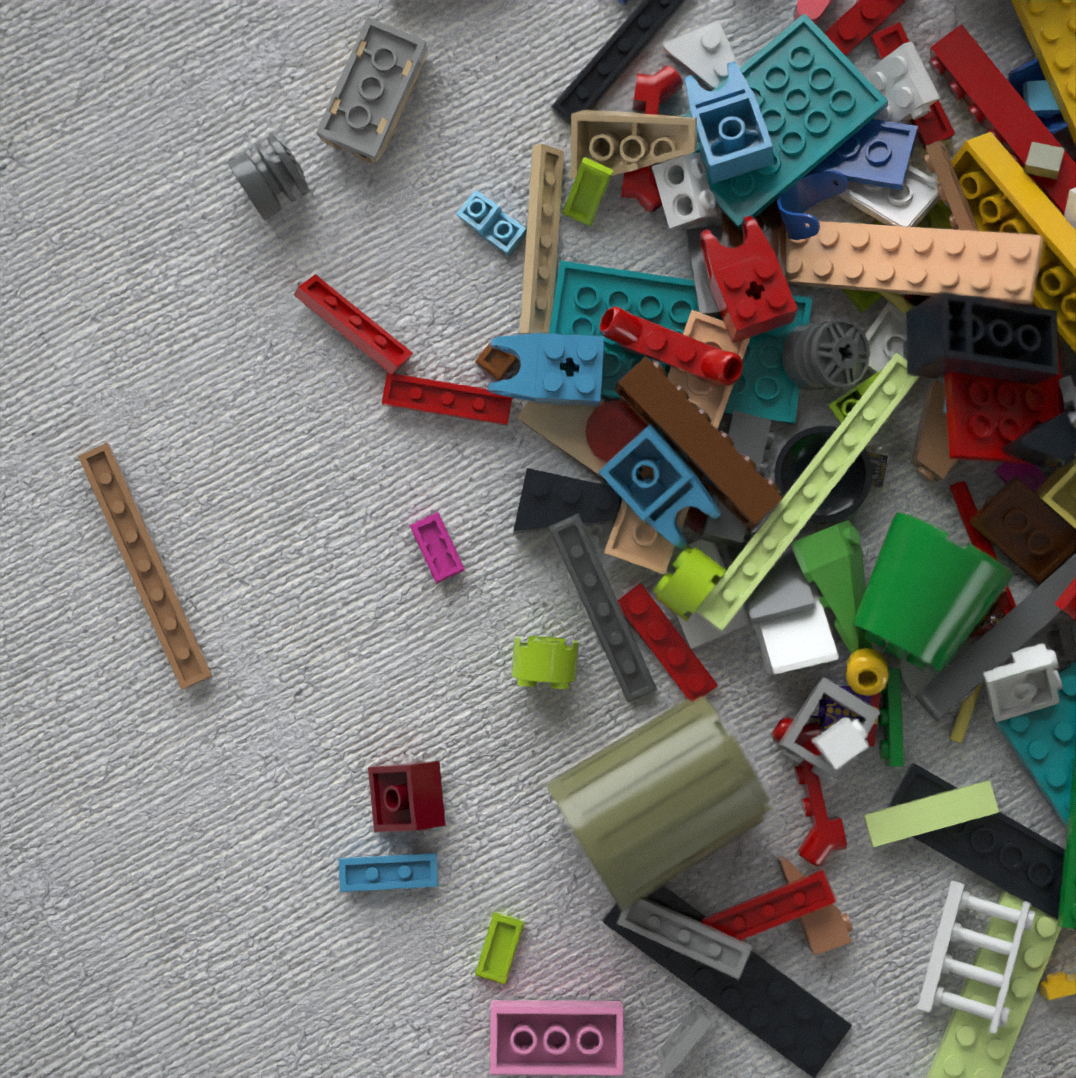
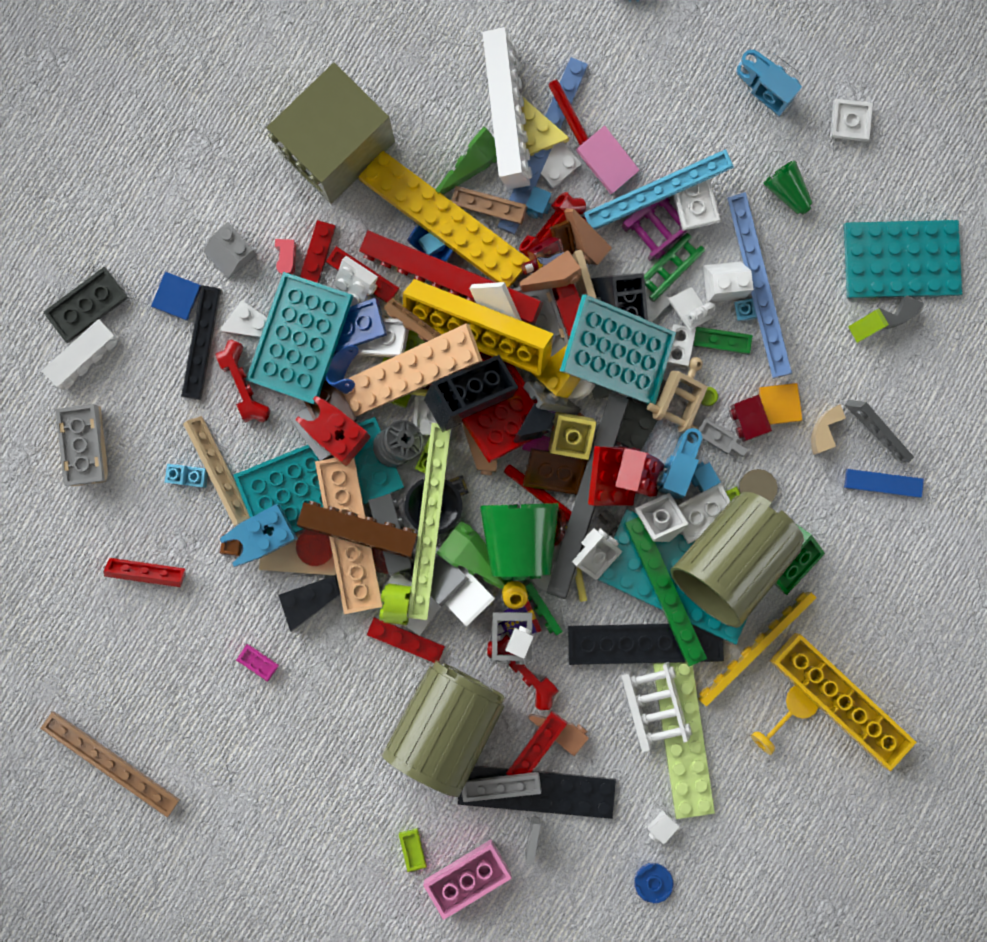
camera: 35 degrees left, 0 degrees up
(269, 176) = (53, 523): dark grey wheel -> none
(388, 872) = (331, 846): dark azure plate -> none
(407, 796) = (318, 801): dark red slope -> none
(446, 399) = (216, 582): red plate -> none
(544, 661) = (347, 688): lime brick -> none
(587, 191) = (225, 431): lime tile -> none
(602, 607) = (360, 643): dark grey tile -> none
(629, 139) = (227, 395): tan wedge -> none
(659, 497) = (355, 566): dark azure brick -> none
(671, 348) = (314, 488): red plate -> none
(678, 192) = (275, 401): white brick -> none
(729, 127) = (277, 356): dark azure brick -> none
(930, 813) = (591, 647): yellowish green tile -> none
(1044, 160) = (448, 278): tile -> none

